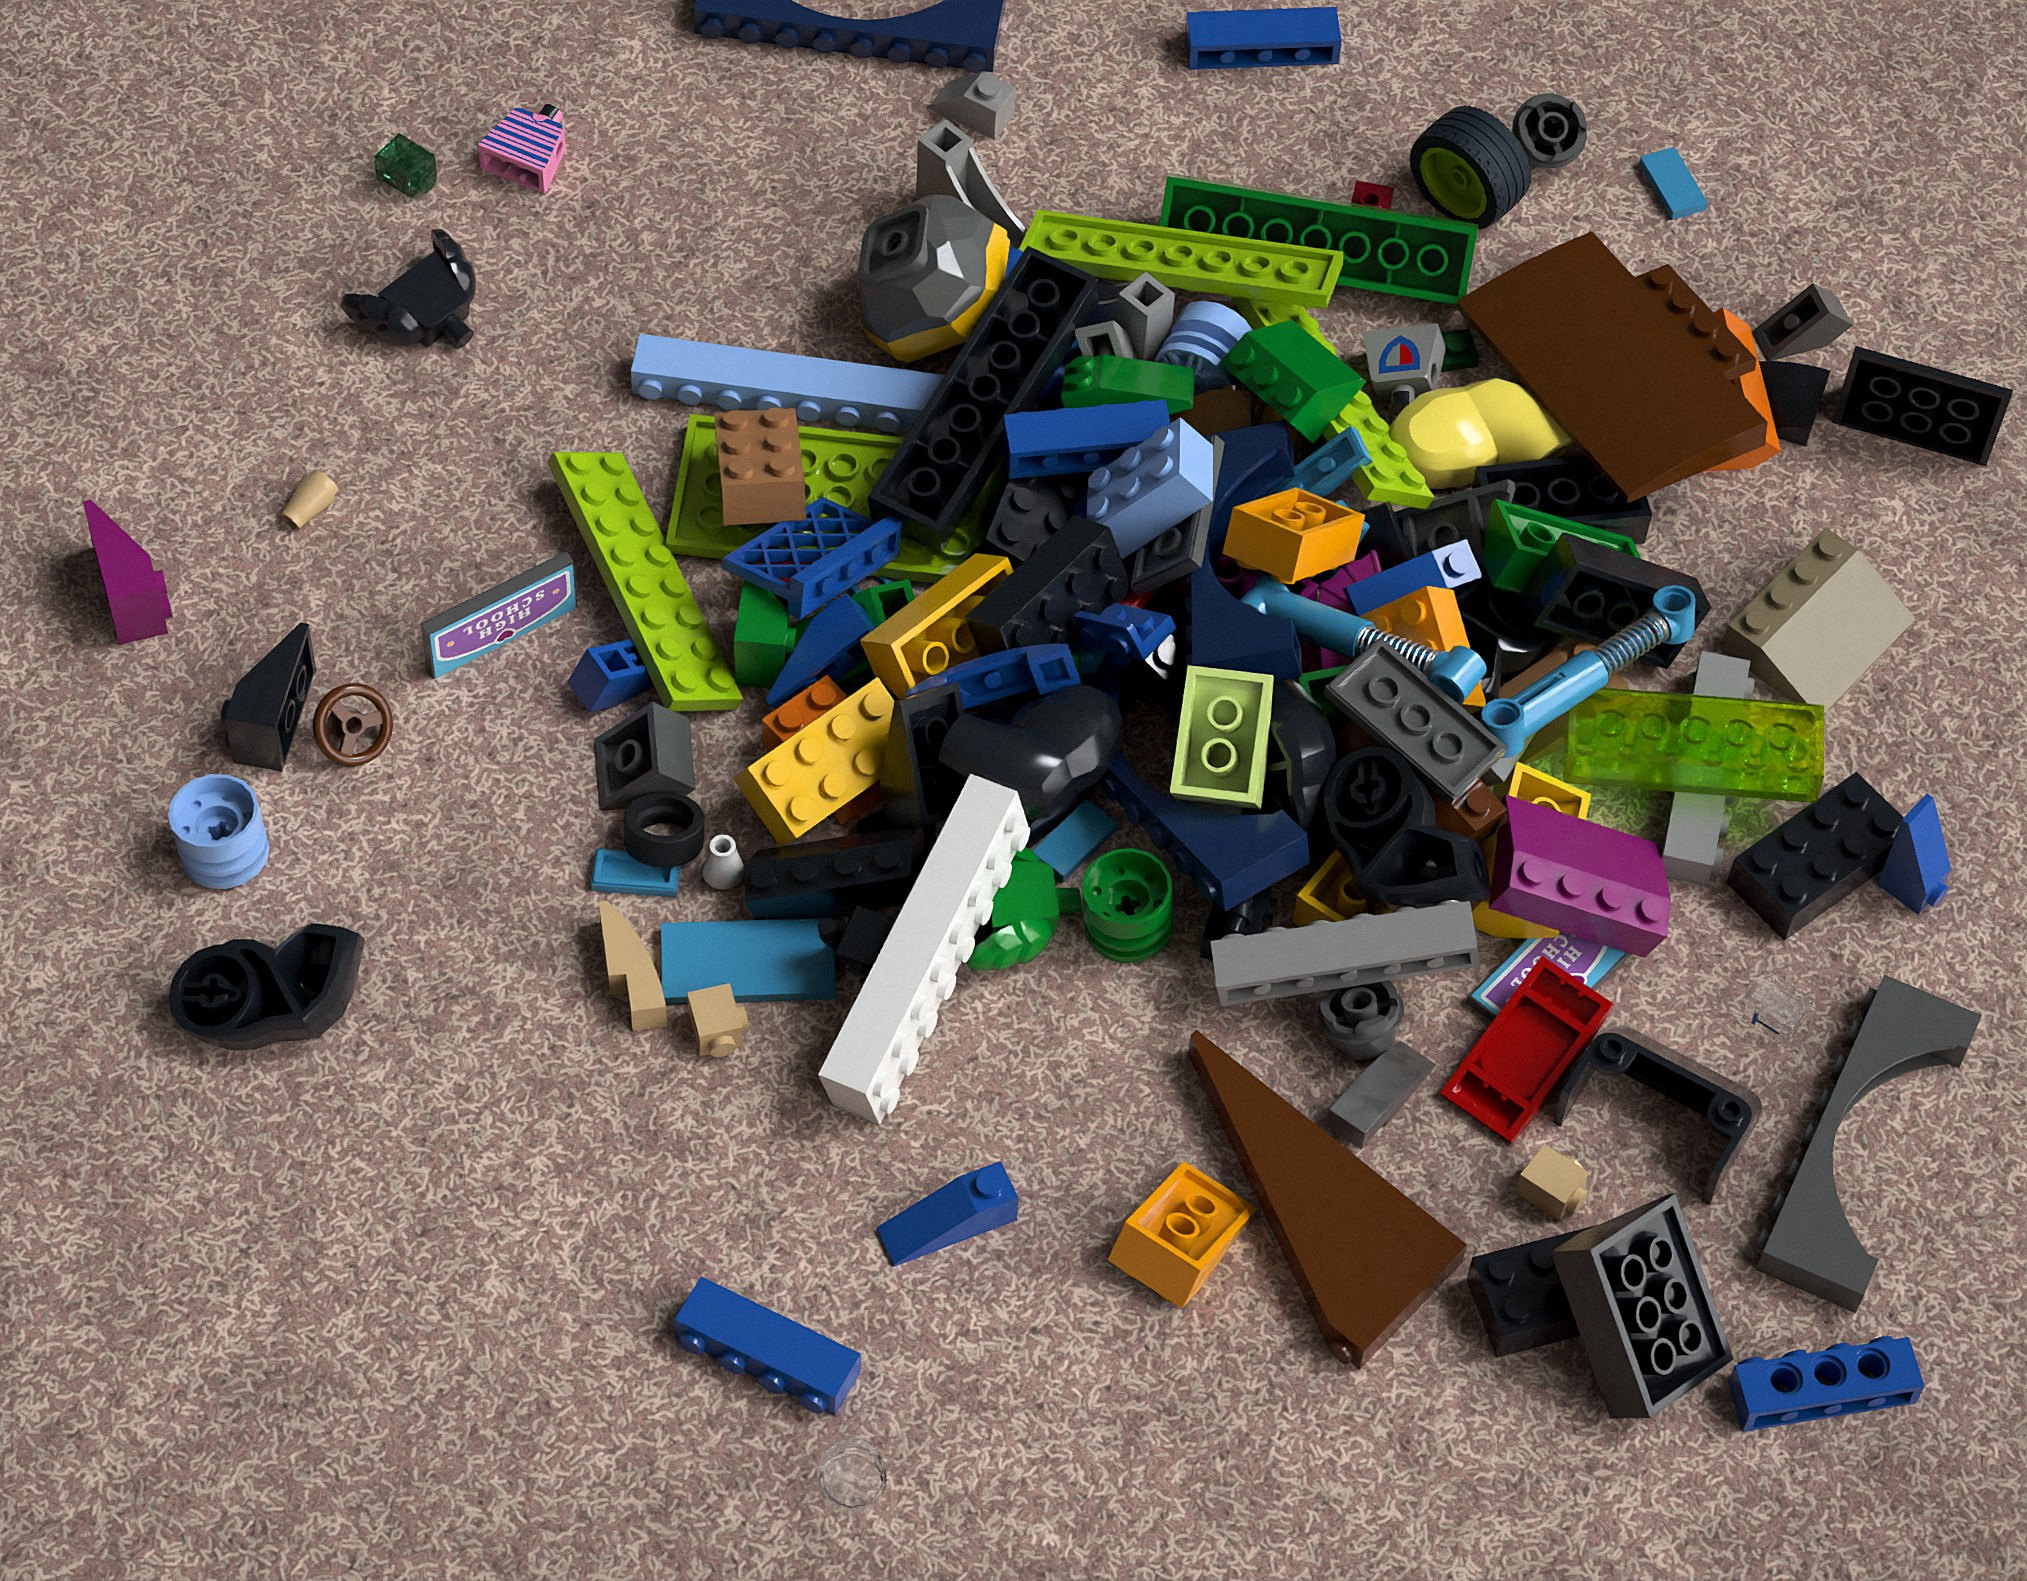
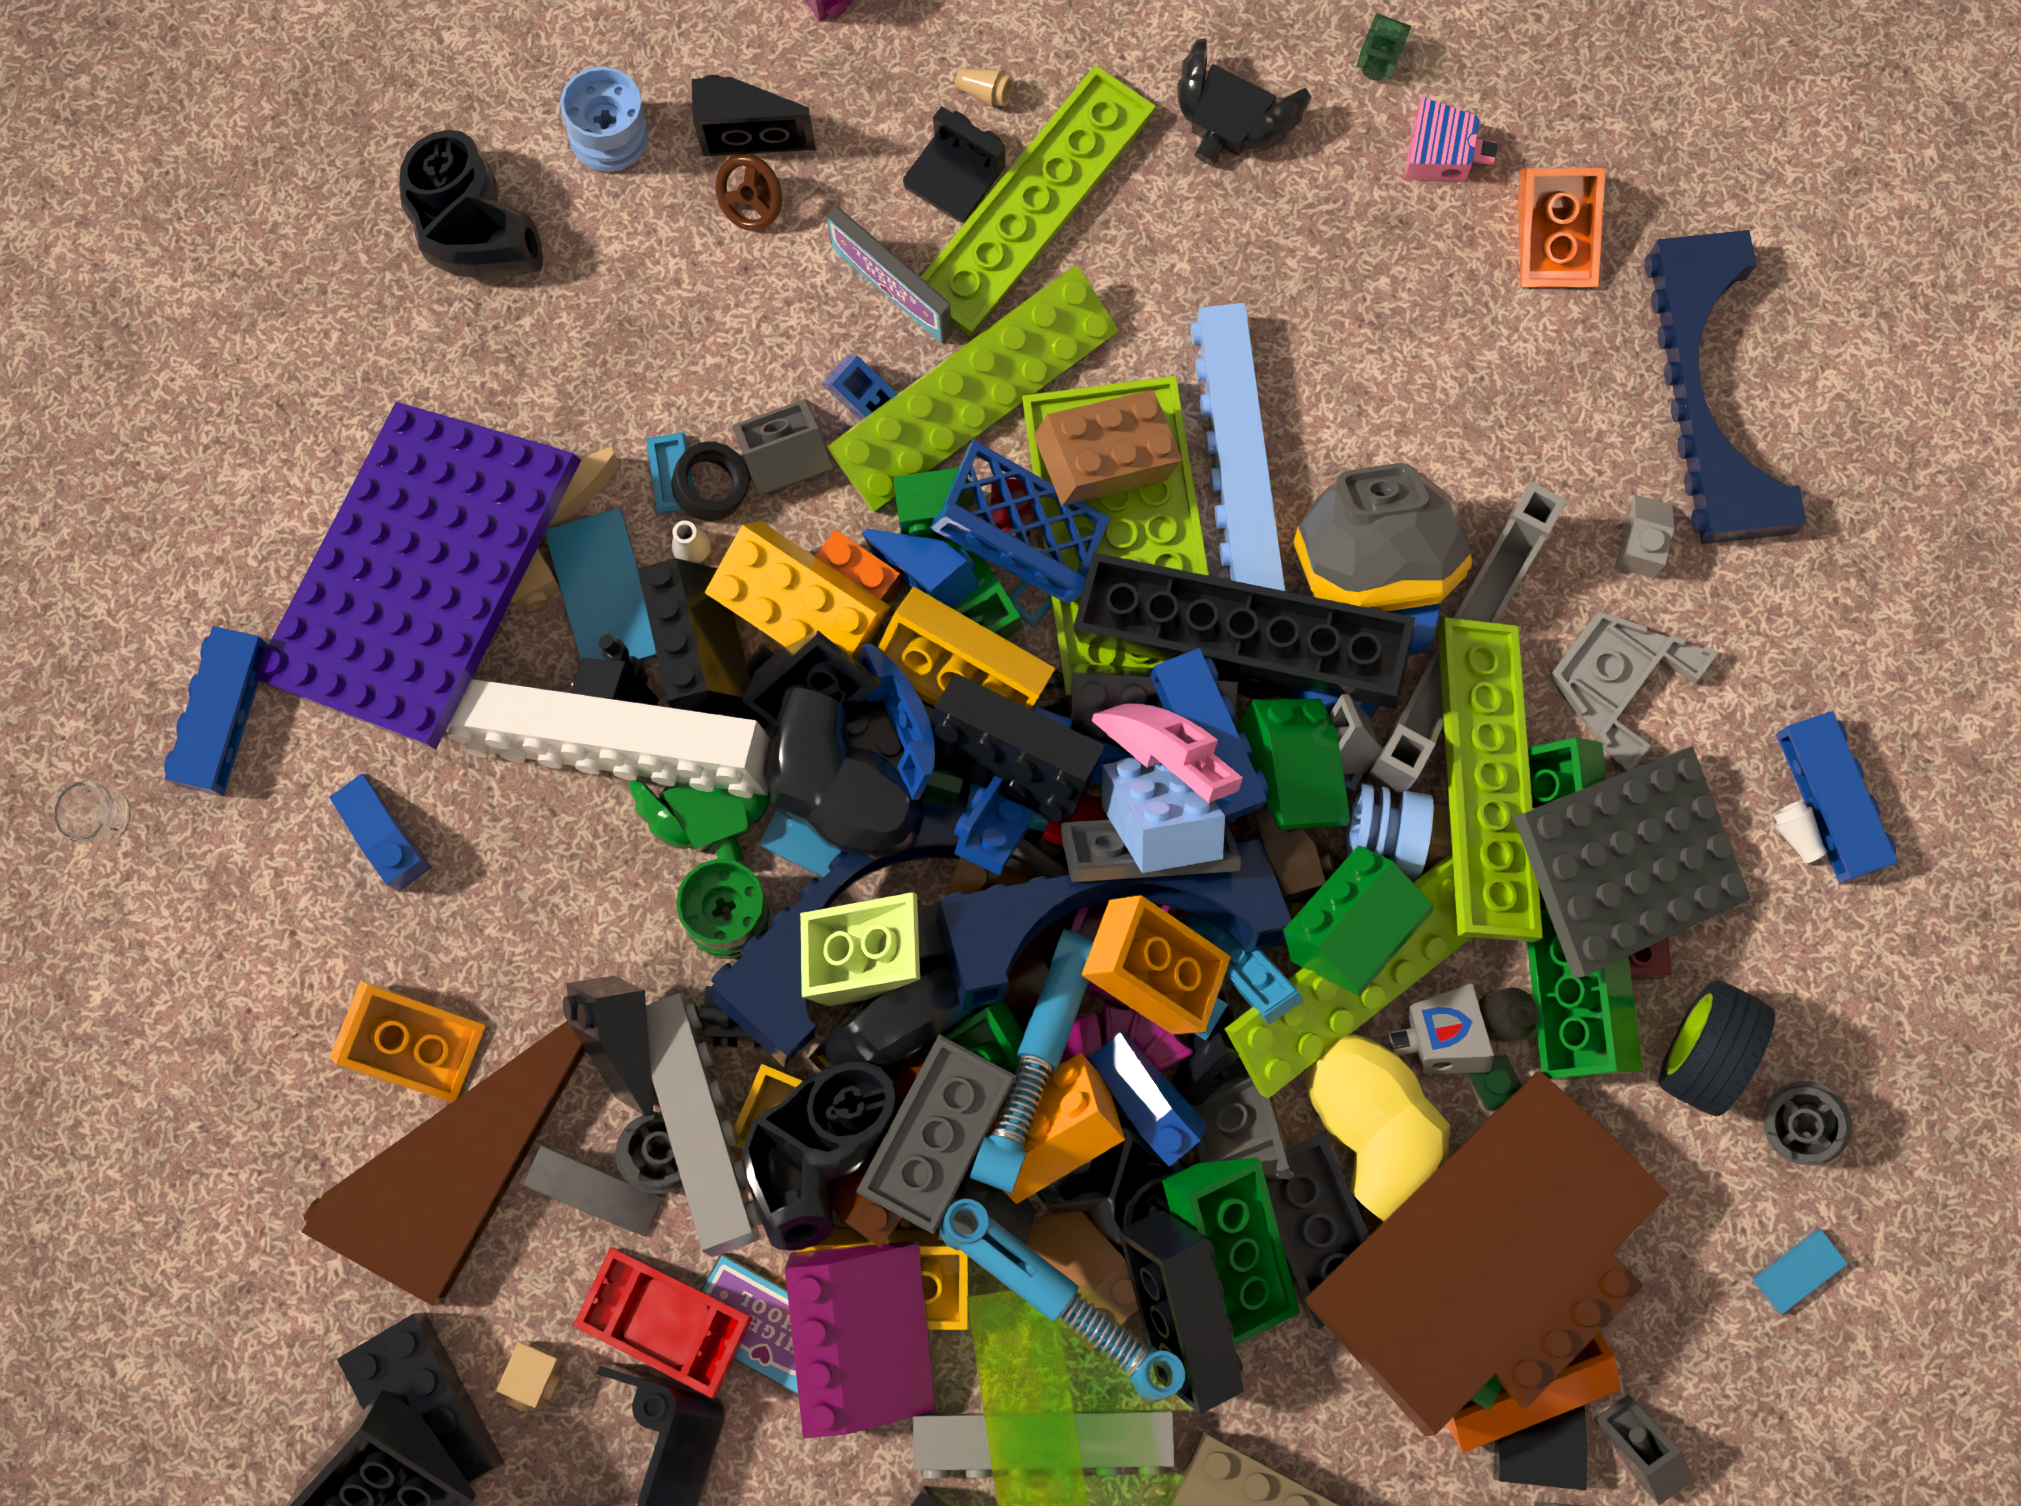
camera: 80 degrees right, 20 degrees up
(390, 541) = (956, 165): none -> black bracket
(444, 476) = (1037, 197): none -> lime plate
(644, 82) = (1560, 226): none -> orange slope
(681, 1102) = (417, 572): none -> dark purple plate
(1077, 466) = (1177, 743): none -> bright pink slope
(1095, 167) = (1609, 668): none -> light grey wing
(1243, 1009) = (613, 1030): none -> black slope
(1283, 72) = (1800, 829): none -> white cone
(1288, 171) = (1631, 860): none -> dark grey plate
(1398, 309) = (1509, 1014): none -> clear smoke head

